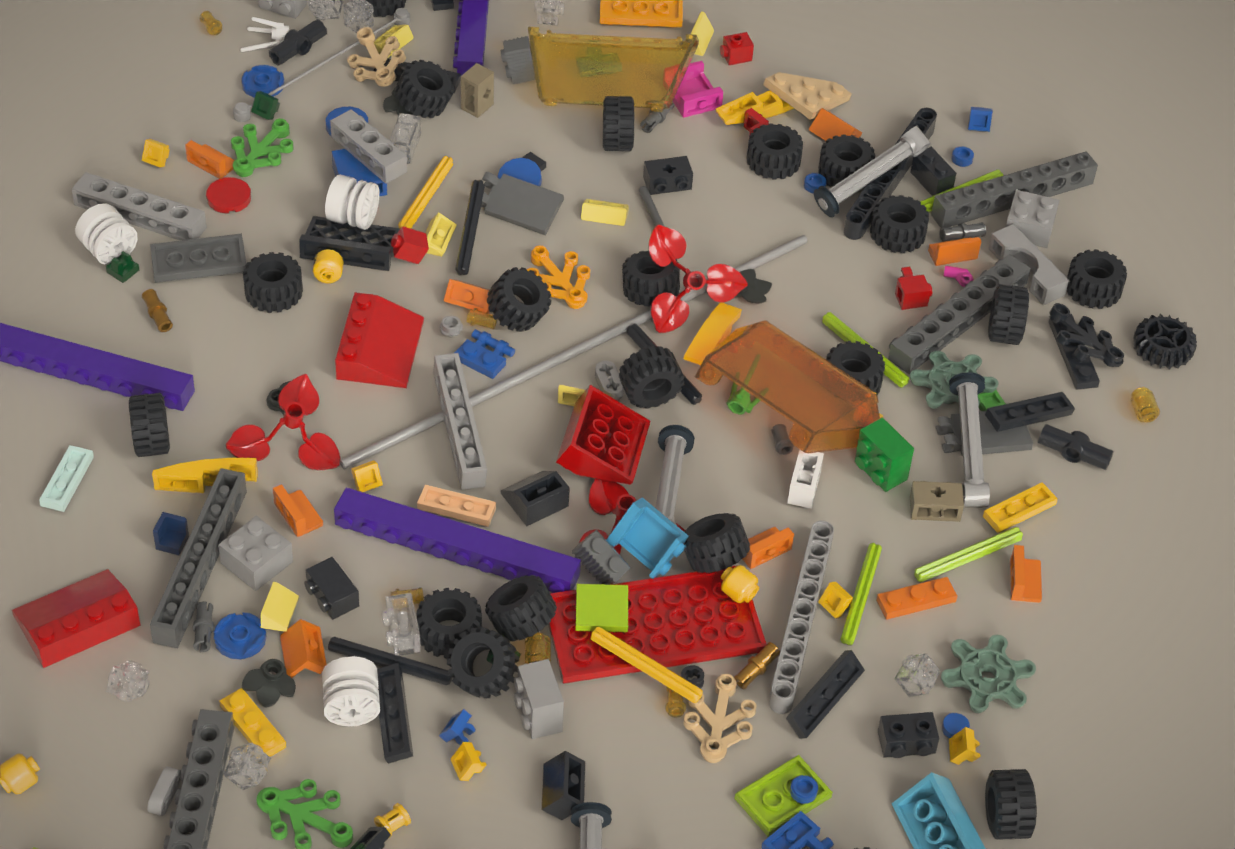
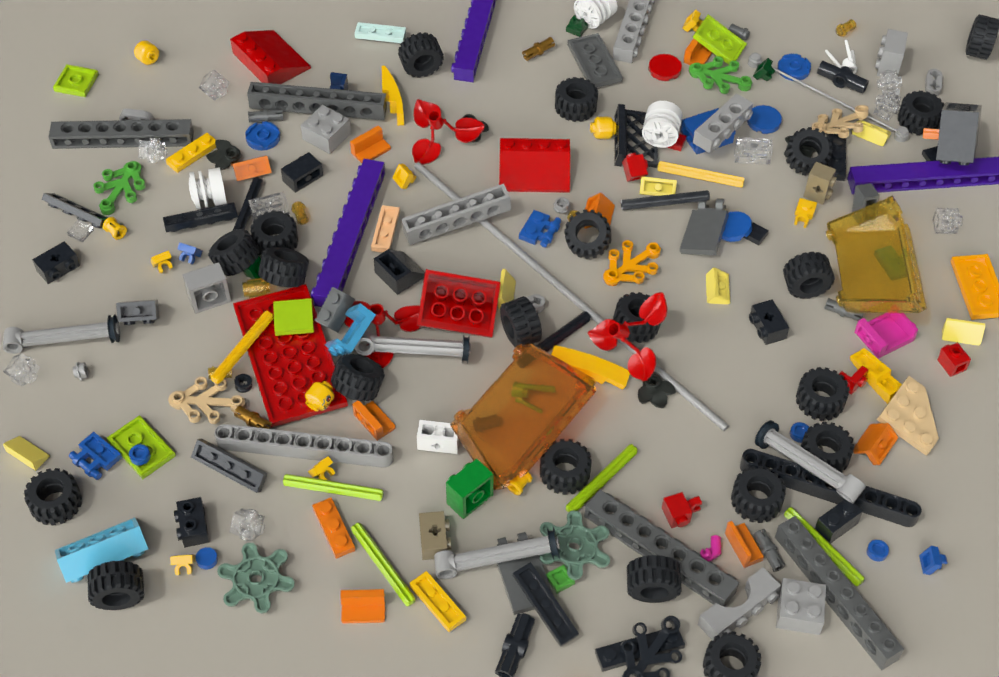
camera: 85 degrees right, 5 degrees up
(186, 116) = (740, 32): none -> dark grey pin
(204, 131) = (719, 39): none -> lime tile
(278, 608) = (282, 147): light yellow slope -> none
(503, 118) = (804, 211): none -> yellow plate
(650, 206) = (717, 322): dark grey bar -> none

